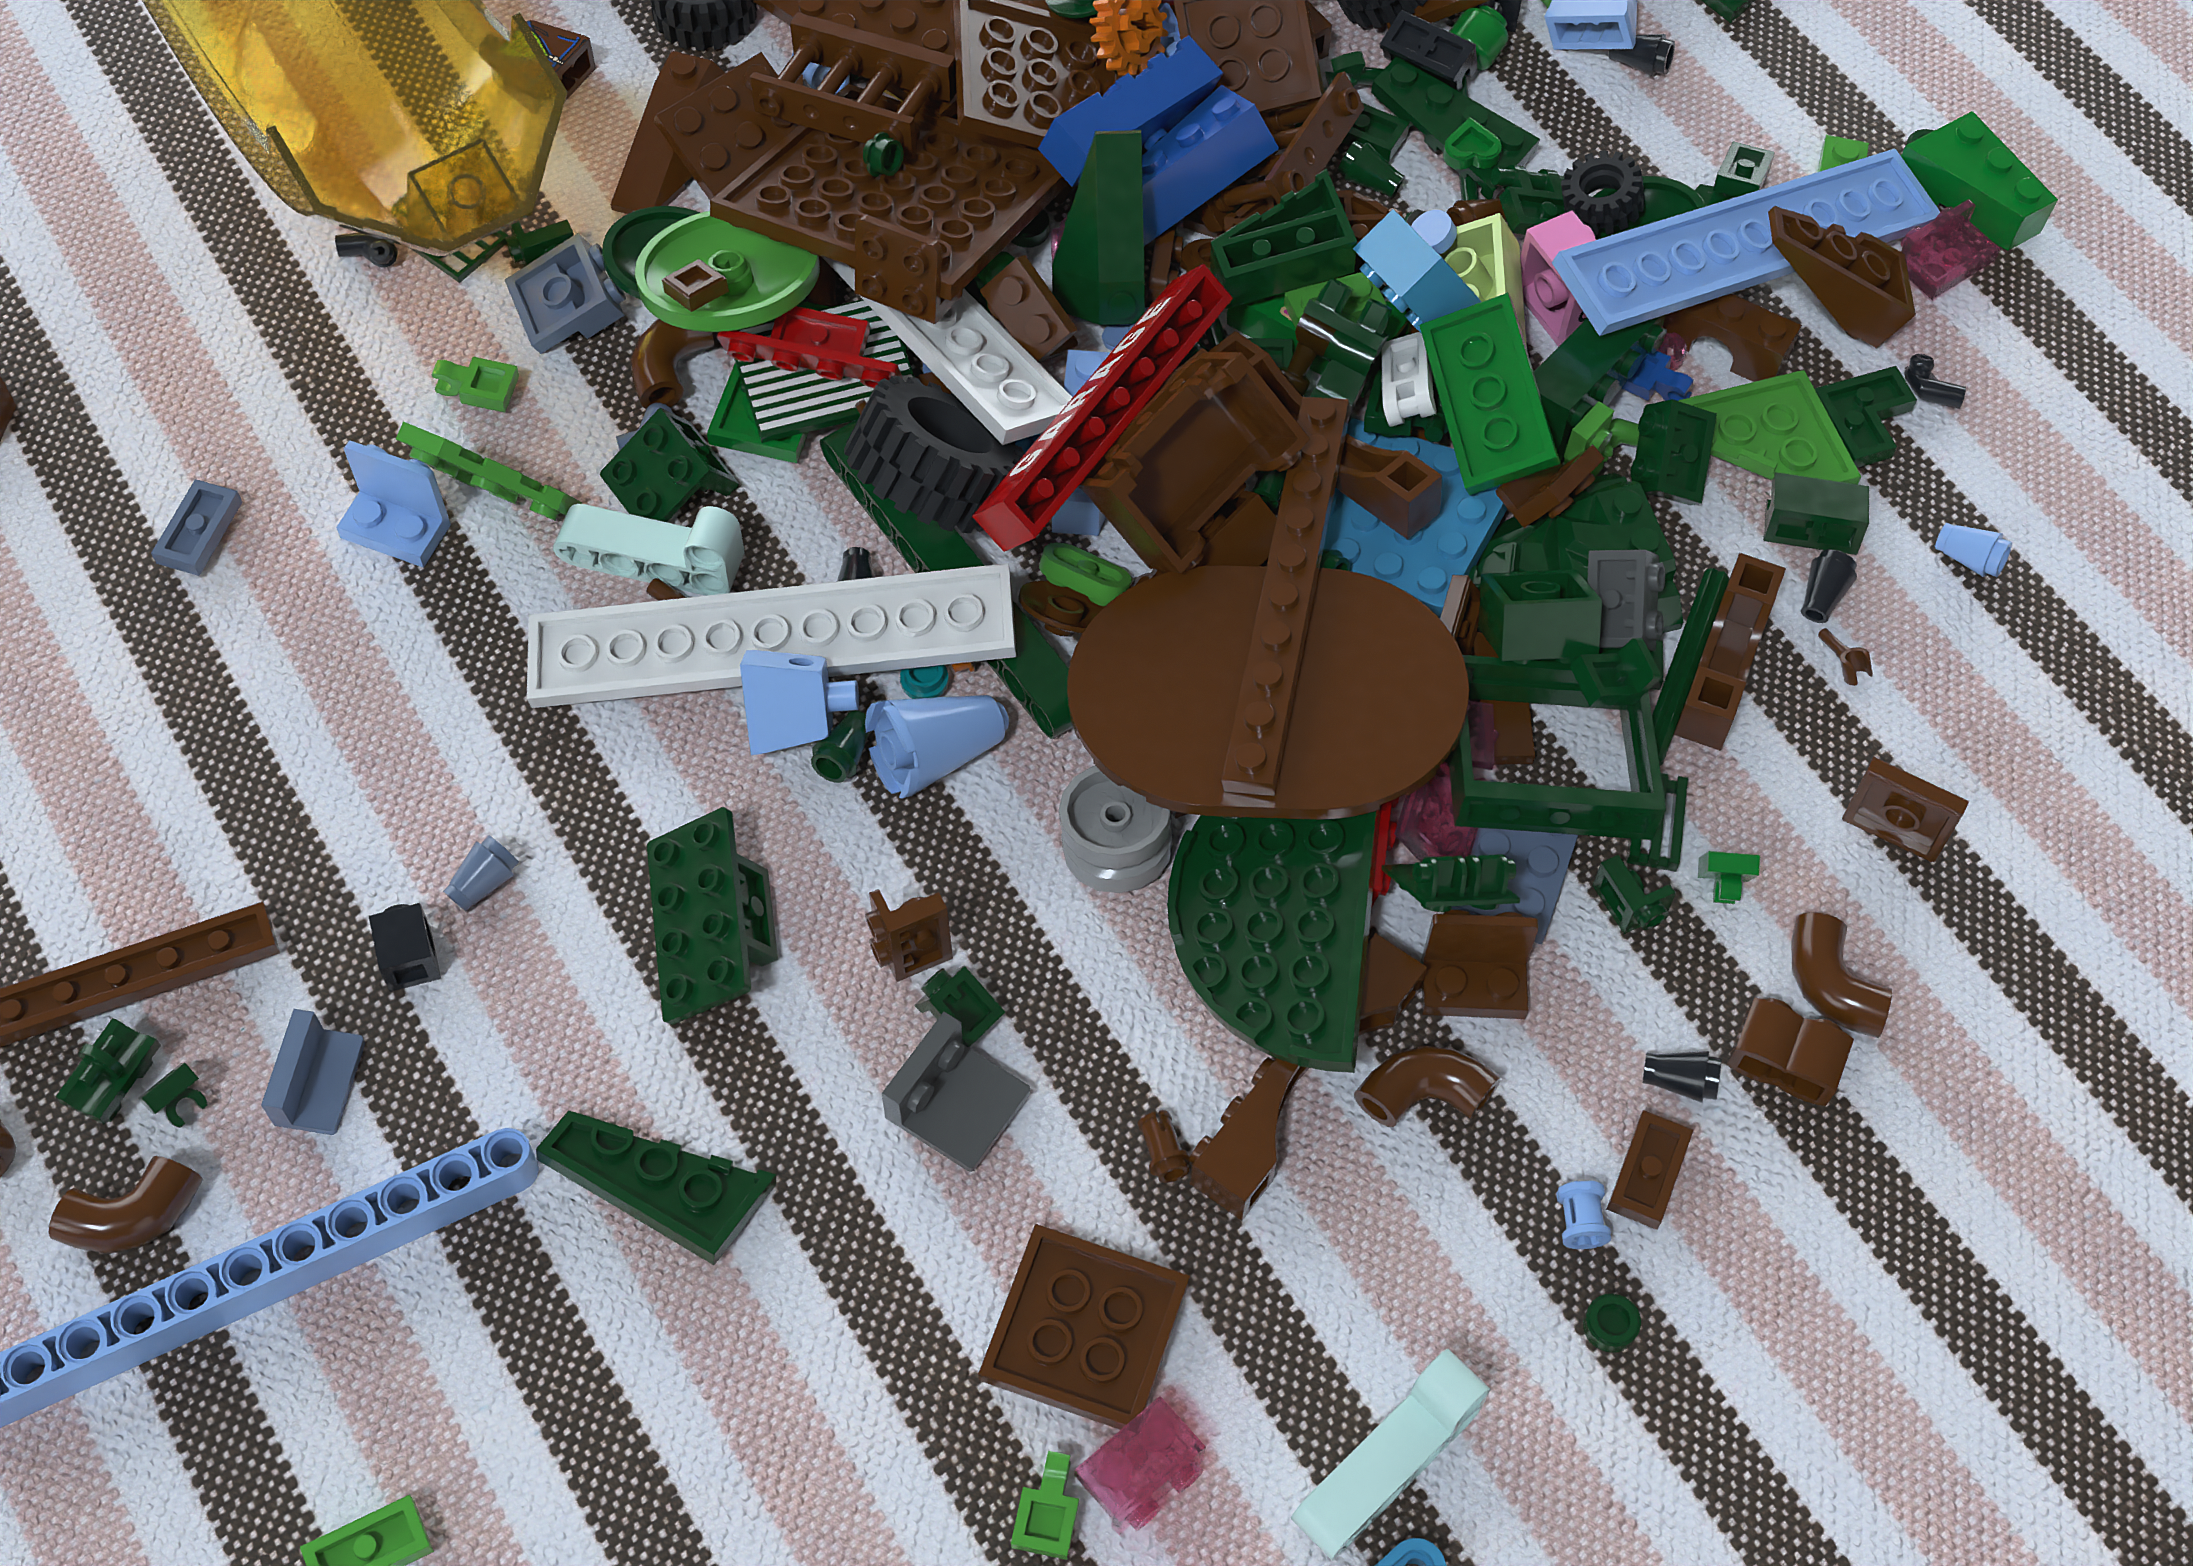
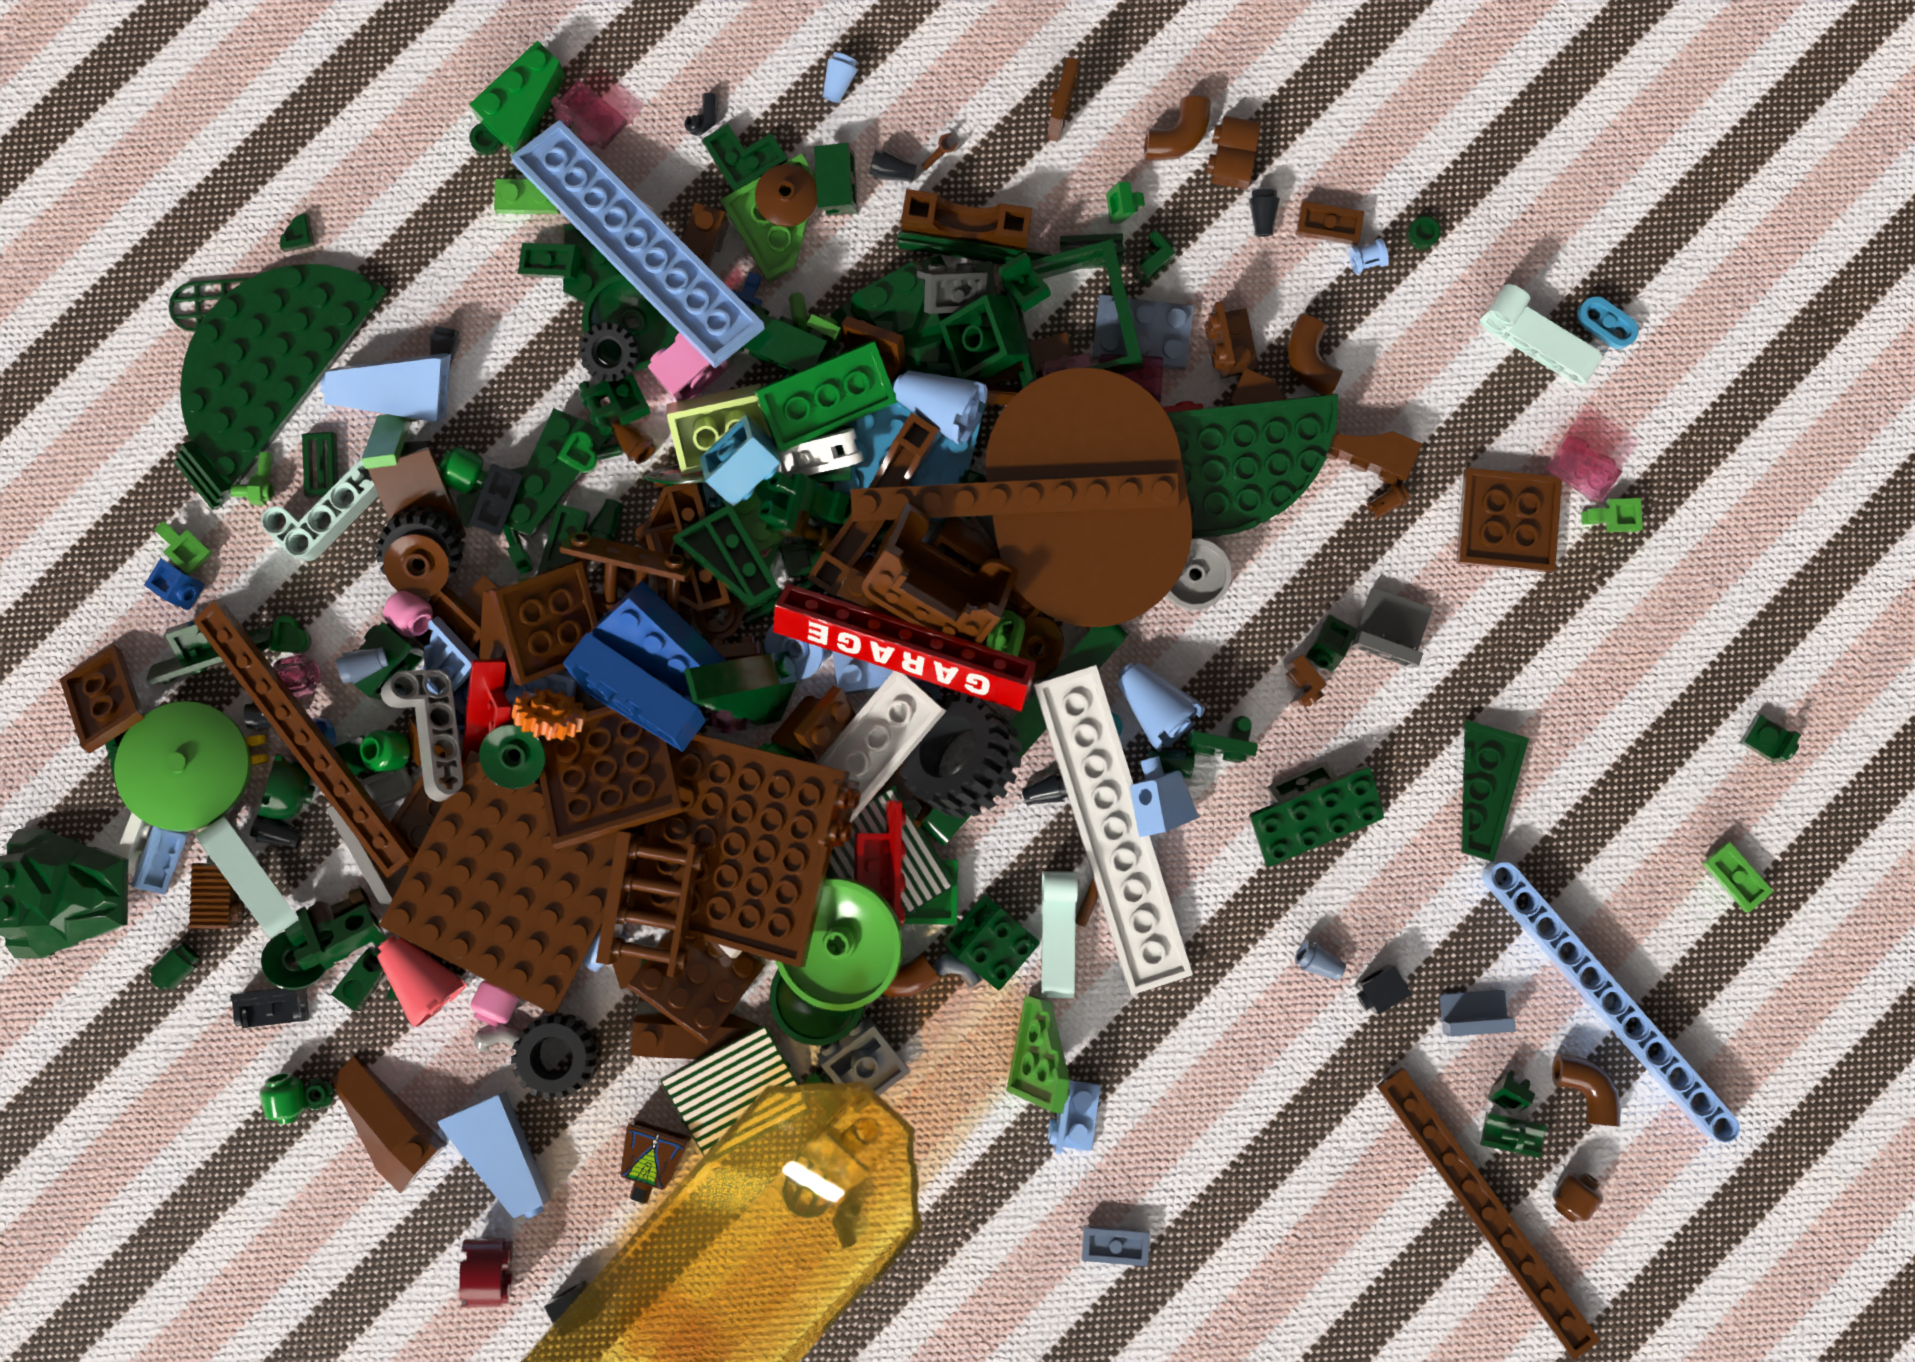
camera: 100 degrees left, 25 degrees up
(481, 384) = (949, 1094): bright green plate -> none
(595, 159) = (725, 1082): none -> piece
(695, 285) = (872, 956): reddish brown tile -> none
(845, 806) = (1234, 747): none -> dark green plate
(883, 155) = (719, 860): dark green plate -> none
(1436, 229) = (683, 461): light blue tile -> none
(1445, 535) = (943, 402): none -> light blue cone
(1457, 881) = (1196, 359): dark green hinge -> none
(1673, 451) = (815, 277): dark green bracket -> none
(1783, 449) = (790, 209): none -> reddish brown dish
(1854, 277) = (645, 174): reddish brown wedge -> none

